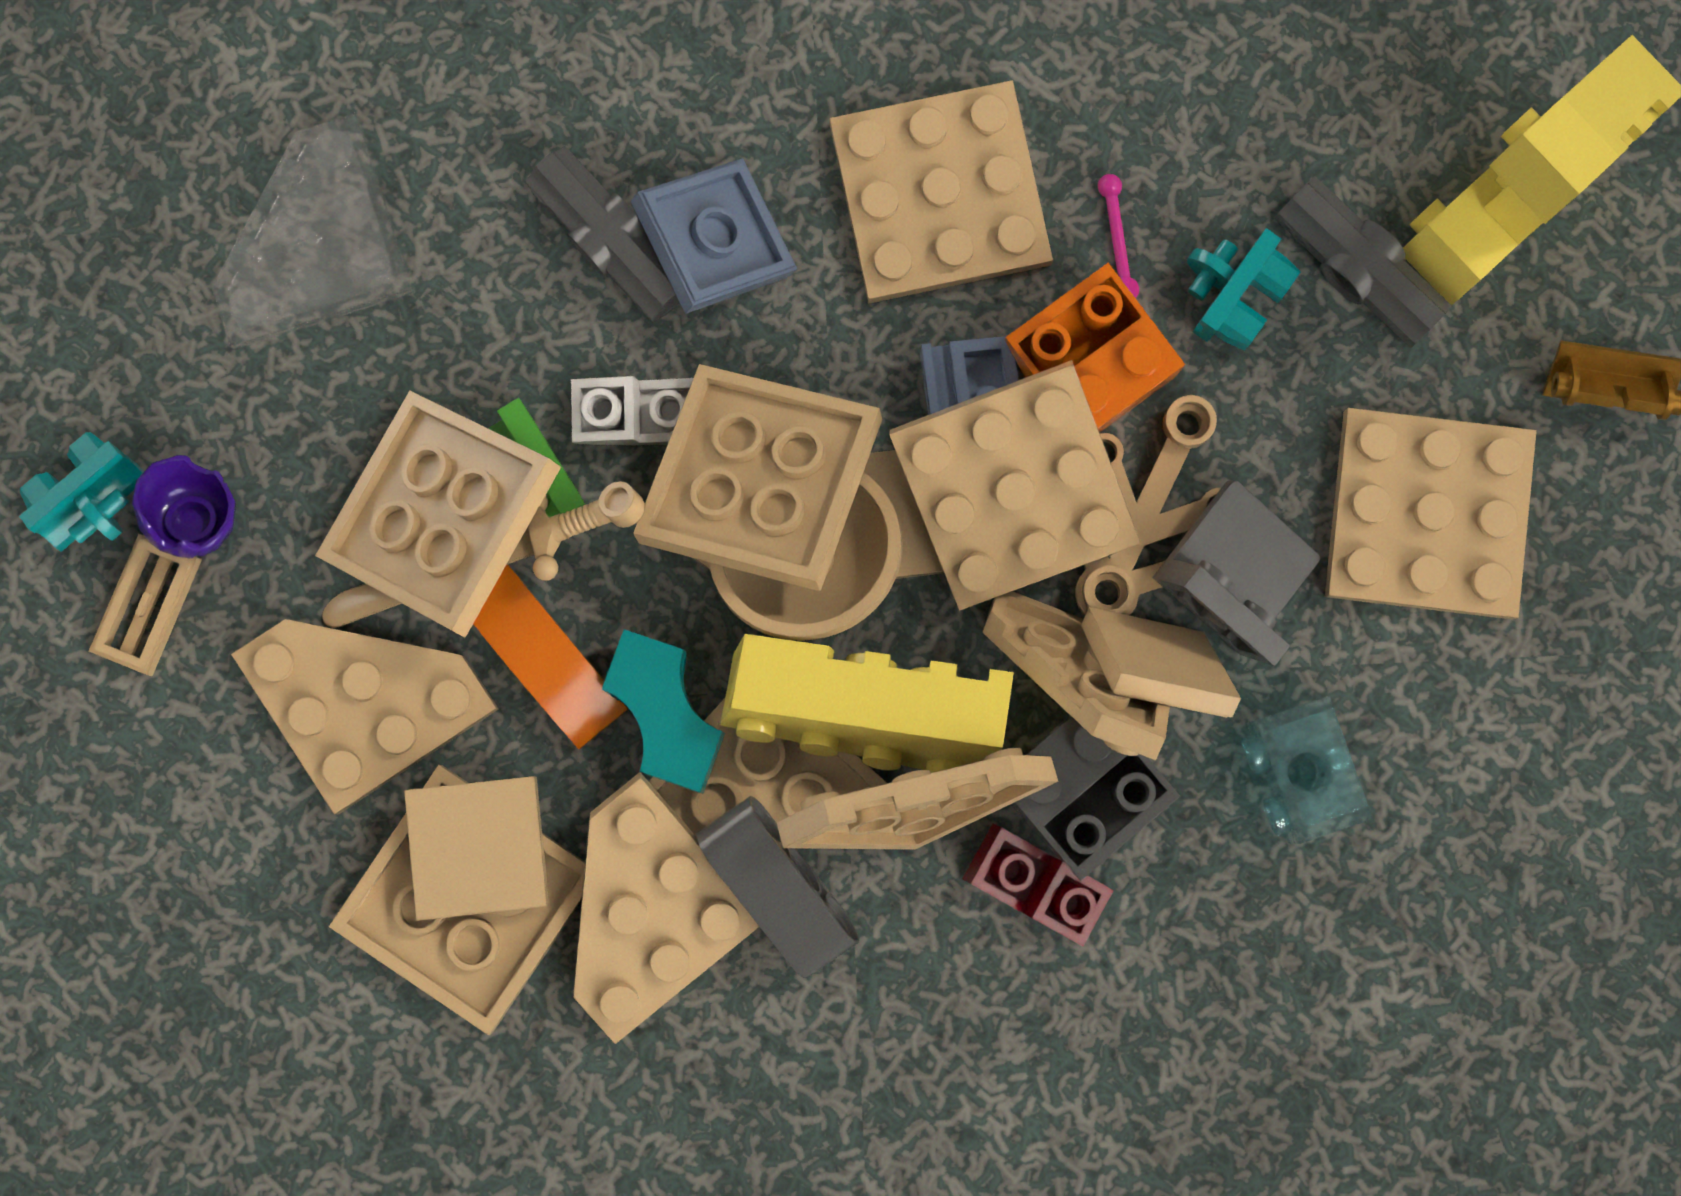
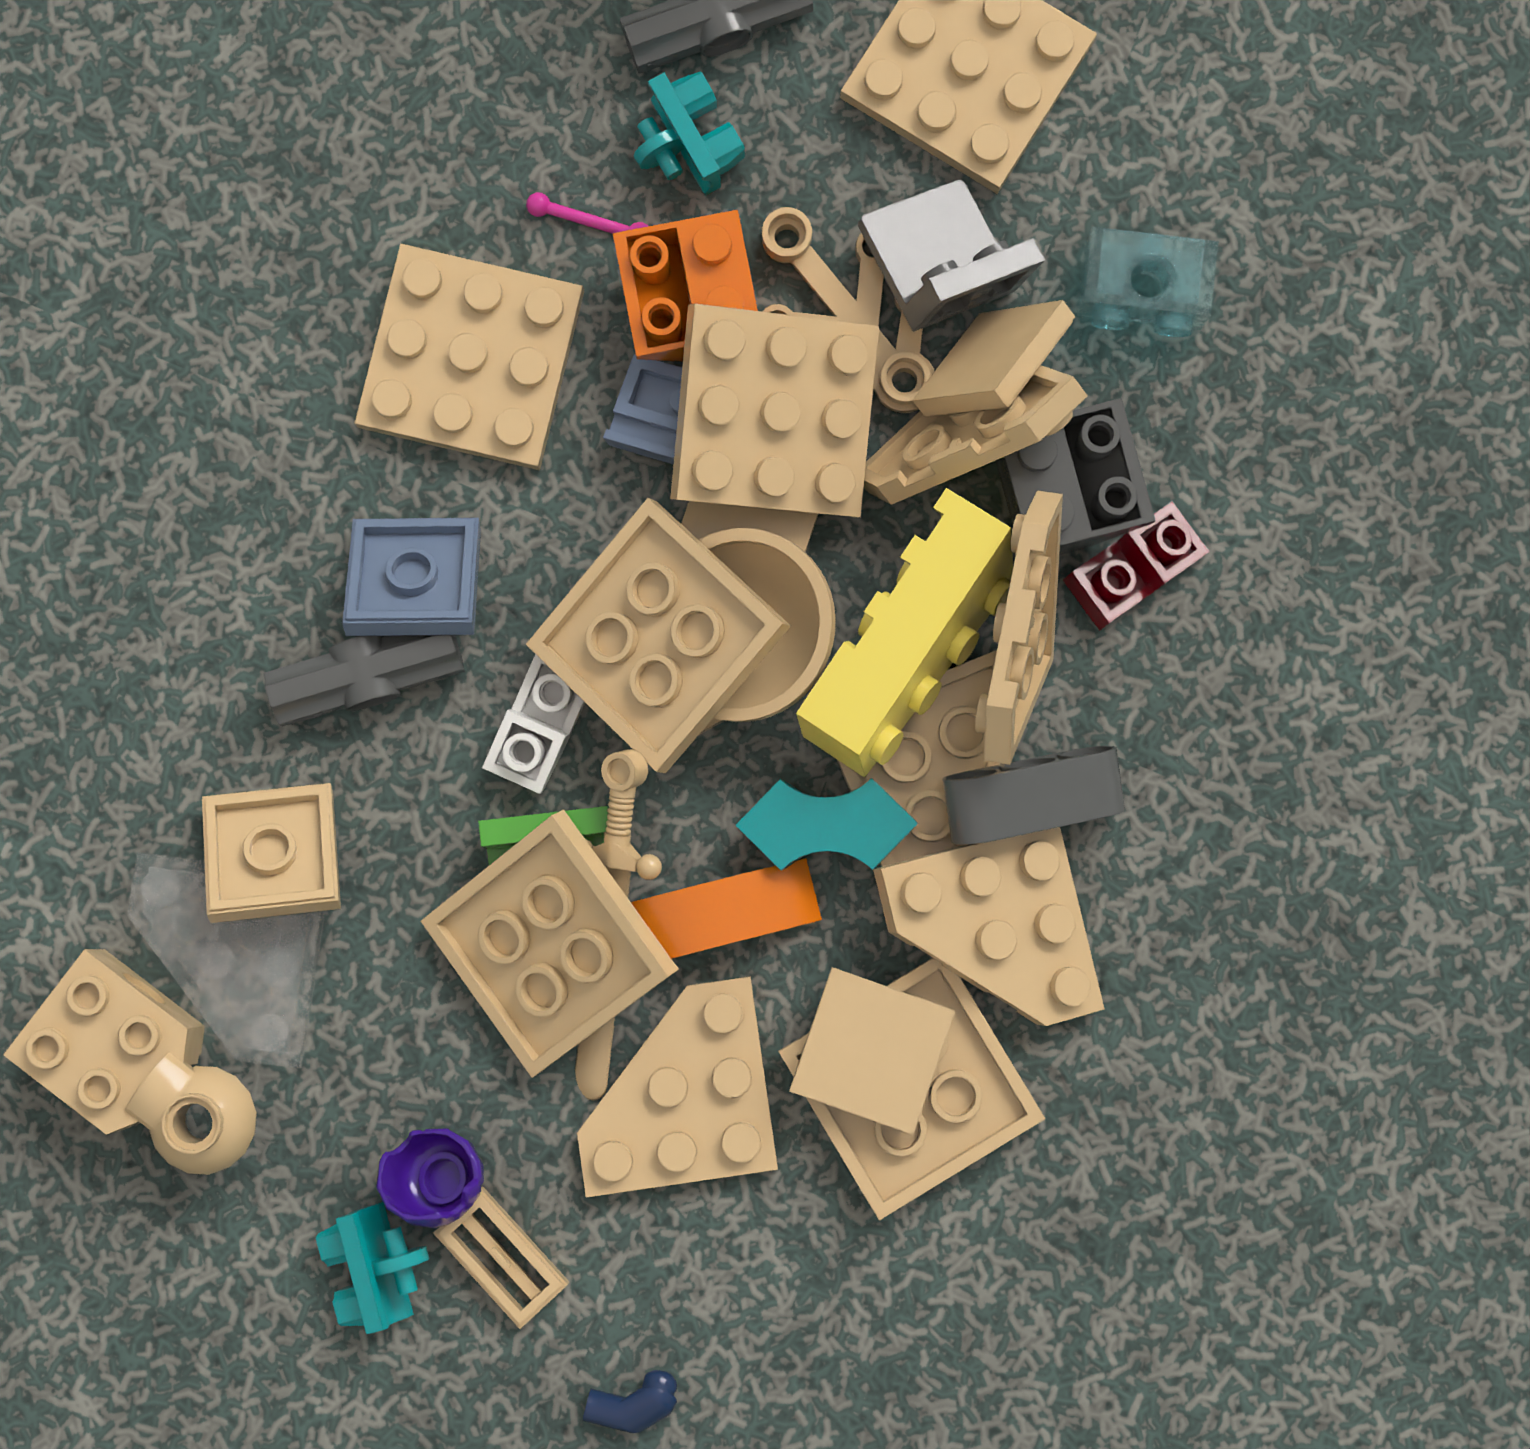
camera: 60 degrees left, 0 degrees up
(62, 788) = (638, 1409): none -> dark blue arm
(166, 184) = (127, 1059): none -> tan brick
(407, 229) = (270, 853): none -> tan tile

